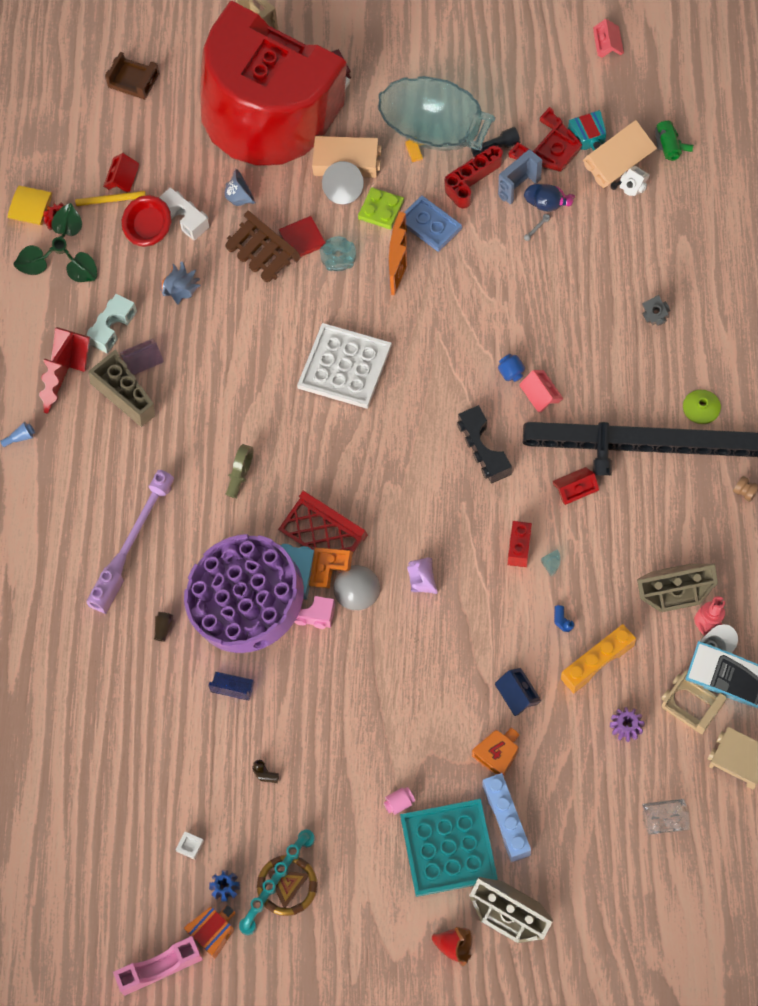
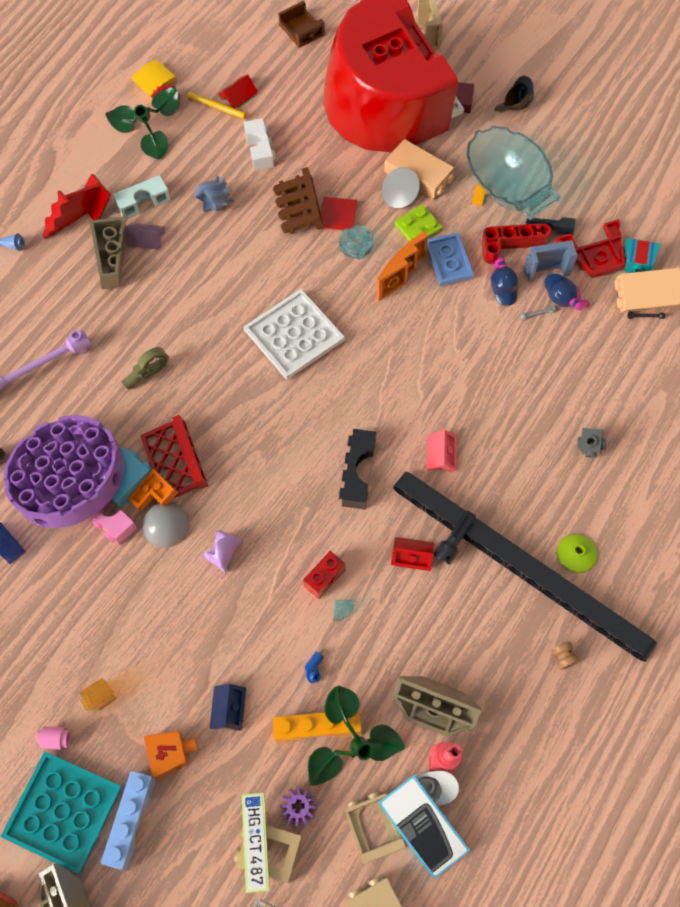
camera: 30 degrees right, 0 degrees up
(146, 220) = (226, 133): red piece -> none
(238, 191) = (315, 149): sand blue hat -> none
(386, 39) = (518, 96): none -> piece
(409, 748) = (97, 696): none -> clear yellow brick
(492, 217) = (504, 283): none -> dark blue hair
(511, 368) = (429, 417): blue head -> none
(616, 765) = (255, 842): none -> tile
(616, 786) = (279, 835): none -> tan panel
(634, 181) = (650, 320): white brick -> none
(654, 642) = (383, 740): none -> dark green plant

